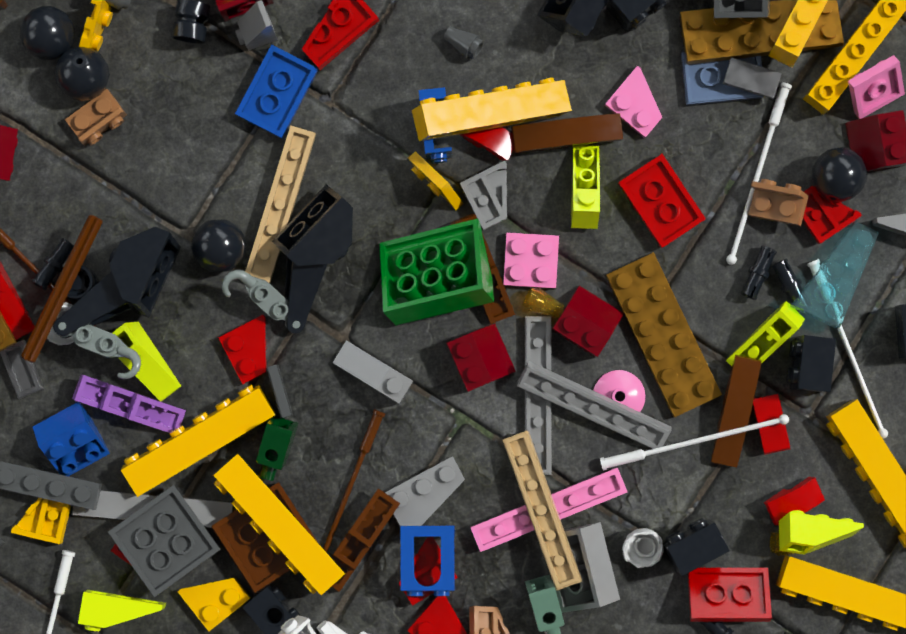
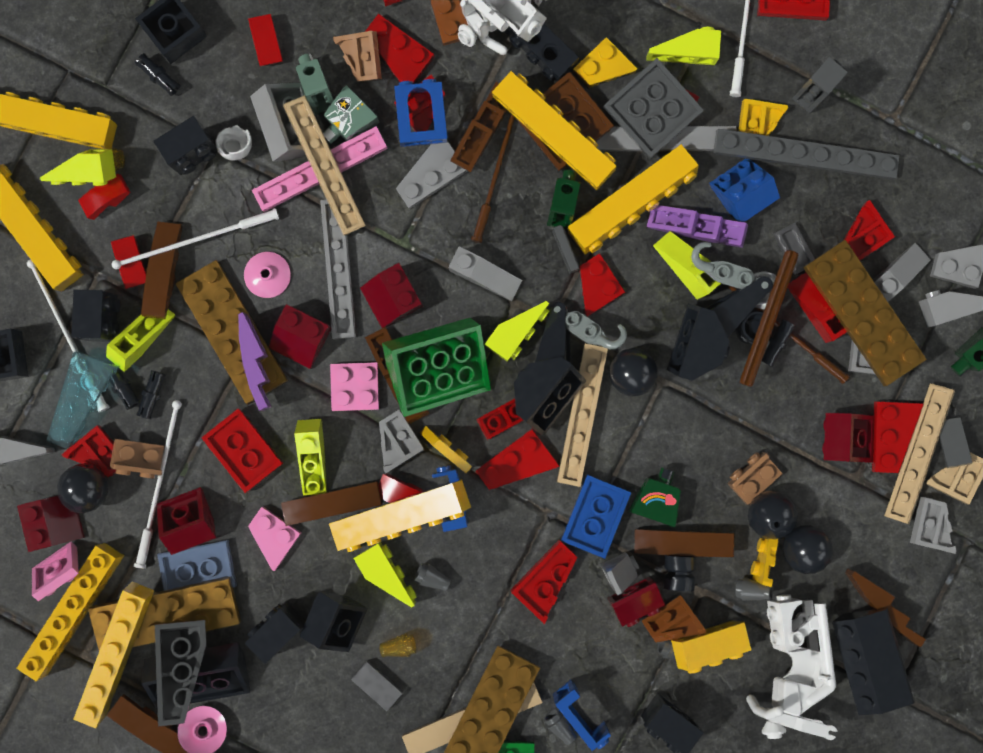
camera: 175 degrees right, 0 degrees up
(181, 53) = (684, 543): none -> reddish brown slope
(206, 103) = (658, 499): none -> dark green torso
(349, 302) = (511, 333): none -> neon yellow slope
(357, 160) = (518, 461): none -> red wing
(373, 209) = (499, 419): none -> red slope
(511, 565) = (348, 117): none -> sand green torso
(520, 54) = (380, 571): none -> neon yellow slope
(542, 303) = (340, 349): clear yellow cone -> none
(593, 406) = (287, 262): light grey tile -> none
(640, 306) = (252, 352): none -> medium lavender slope
(729, 595) = (152, 108): red plate -> none
(730, 129) = (185, 521): none -> dark red slope
(752, 78) = (169, 568): flat silver tile -> none

